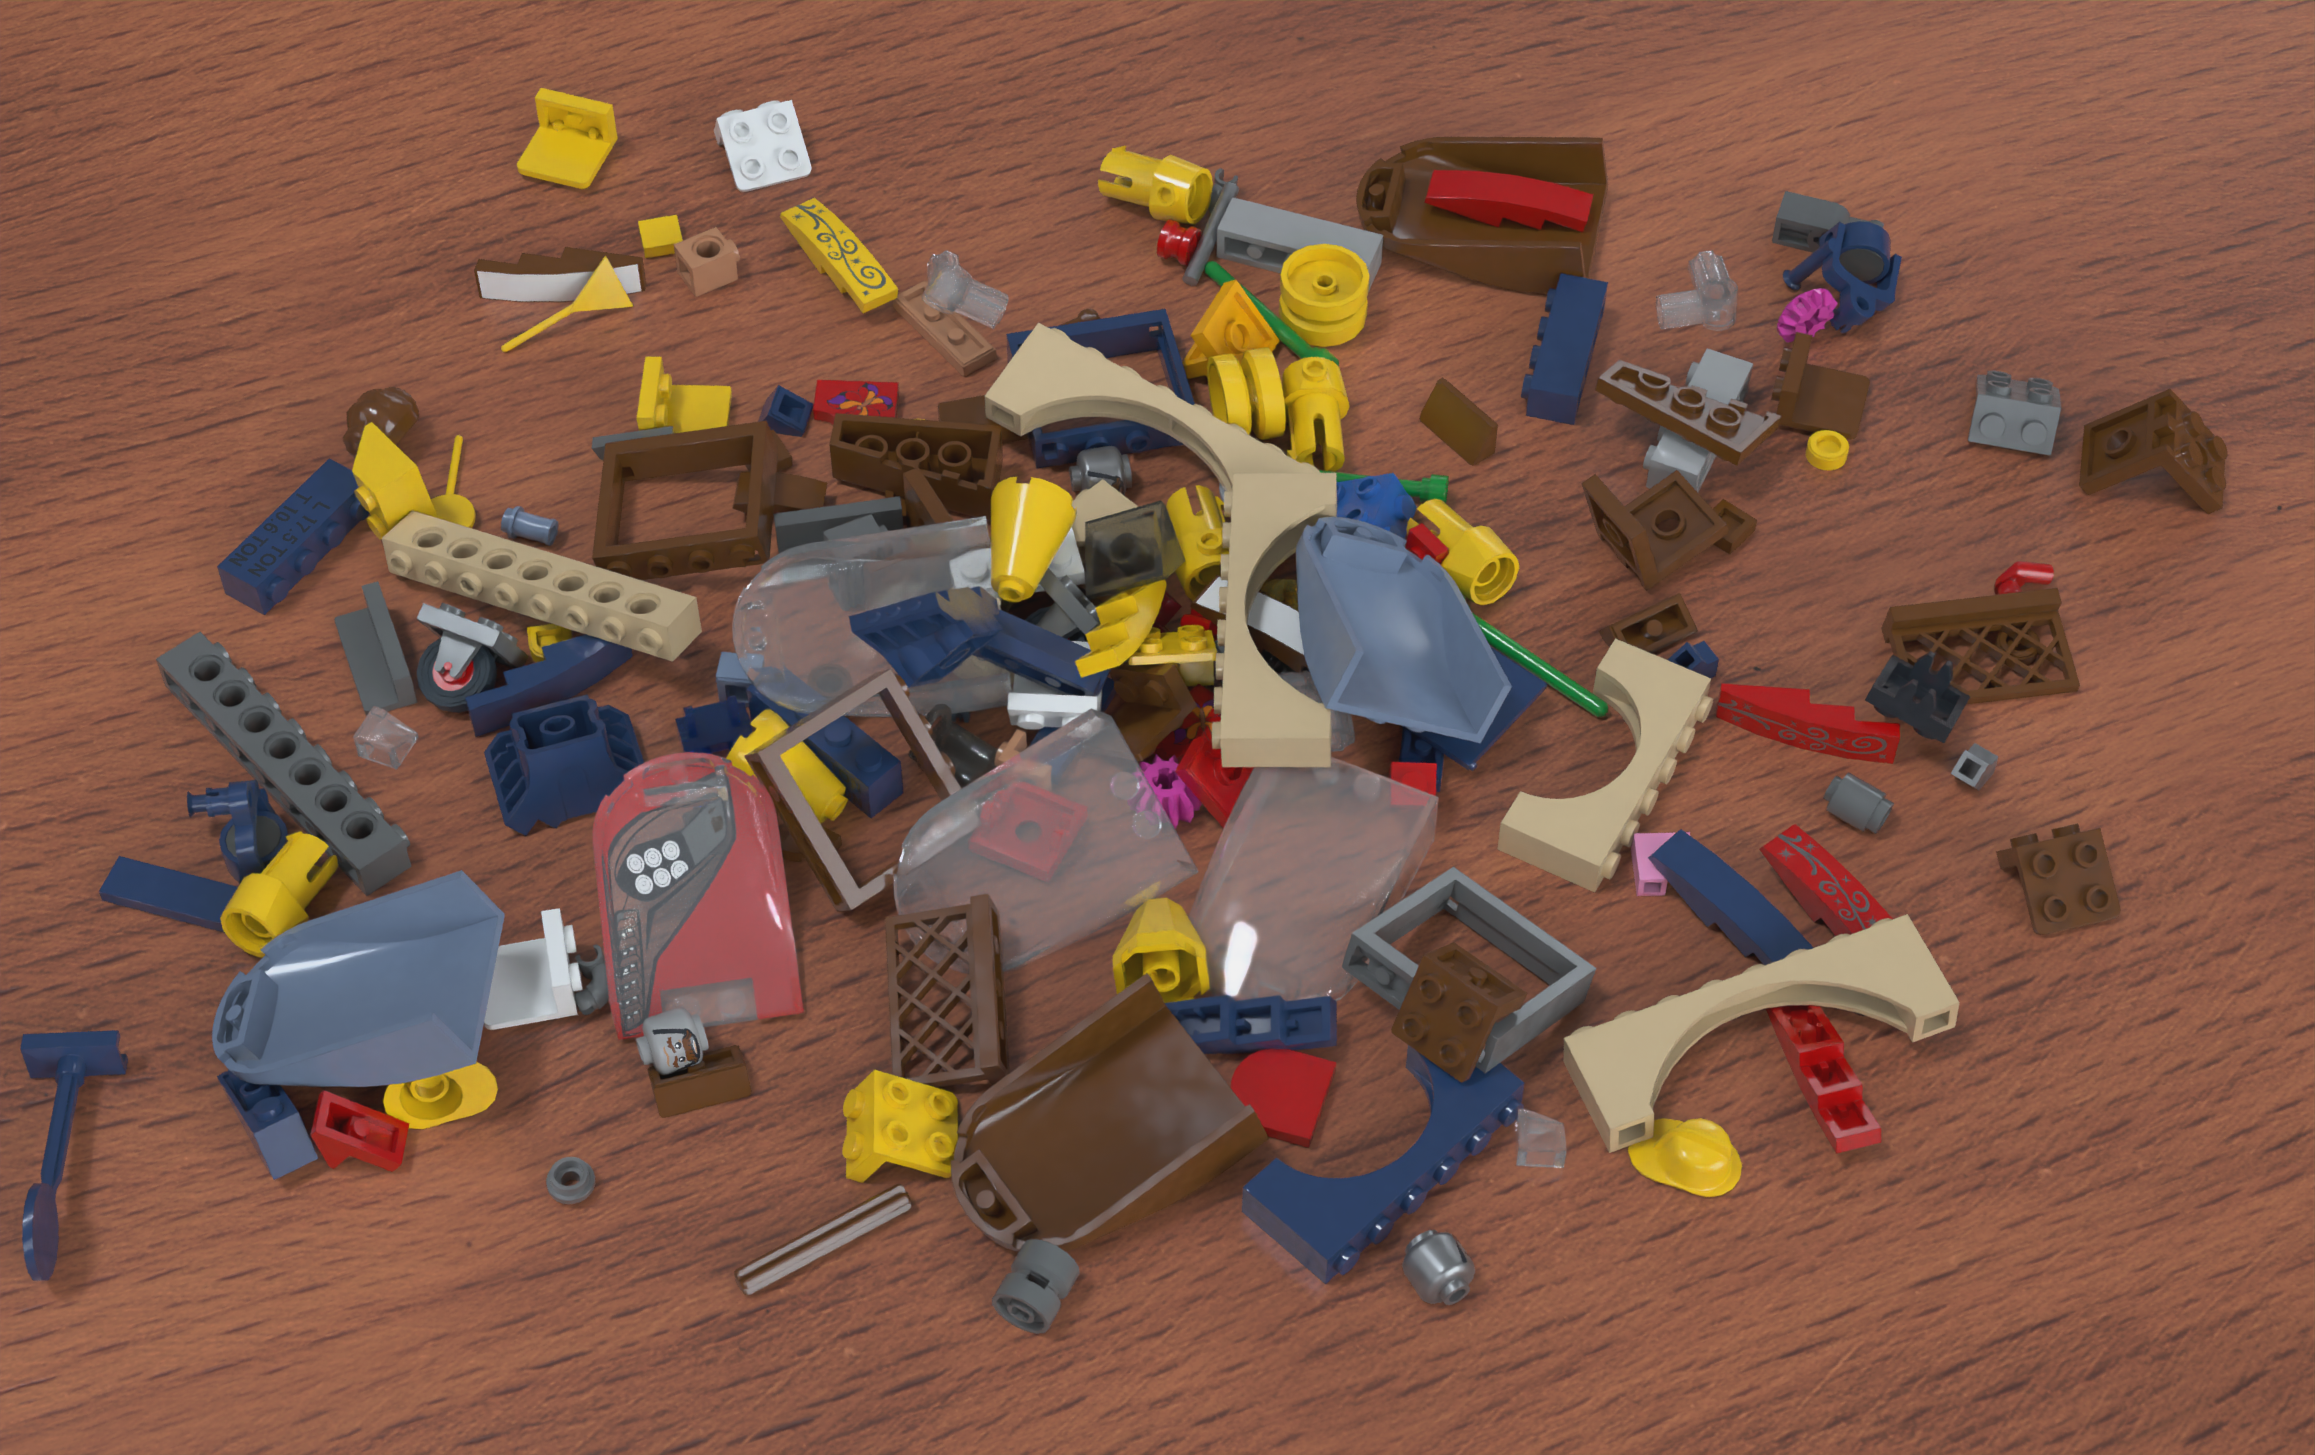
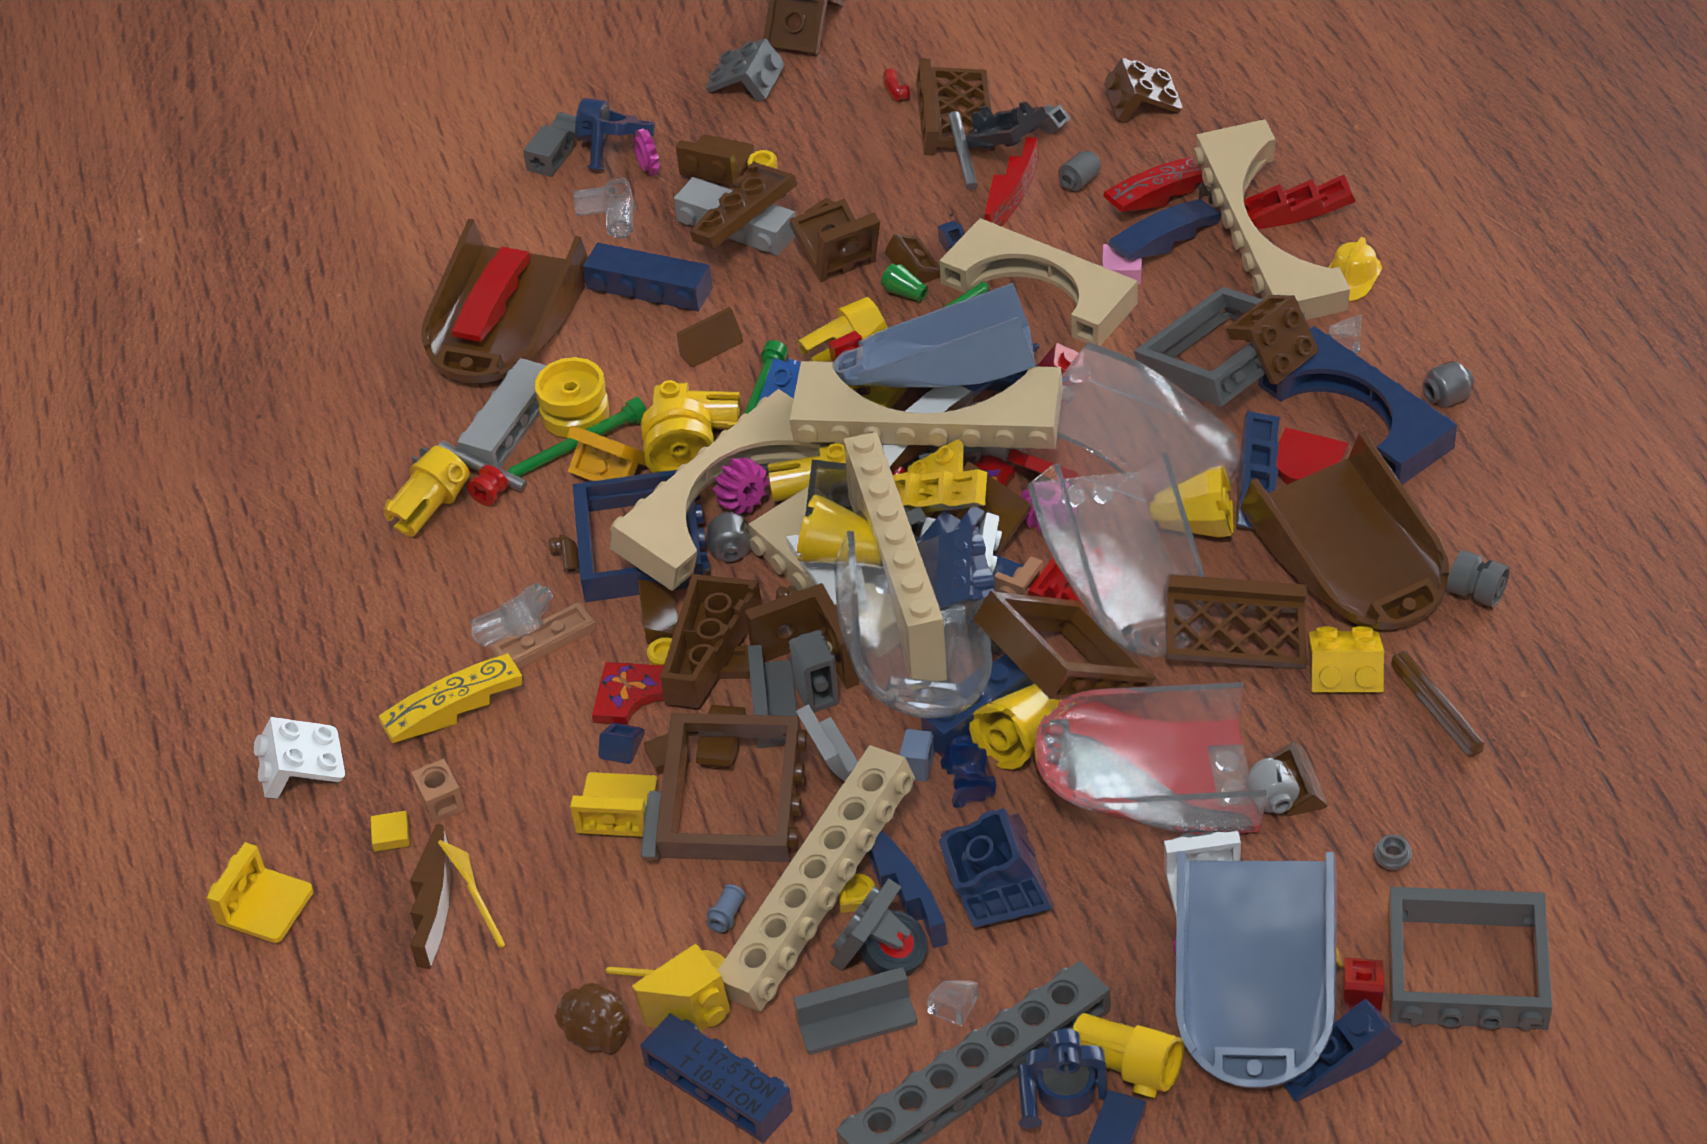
camera: 80 degrees left, 5 degrees down
(390, 1333) = (1471, 908): none -> dark grey window
(720, 580) = (829, 742): none -> light grey slope
(1081, 538) = (914, 602): none -> tan arch
(1172, 465) = (741, 485): none -> dark pink gear
(1589, 614) = (903, 283): none -> green cone
(1875, 661) = (962, 150): none -> flat silver bar

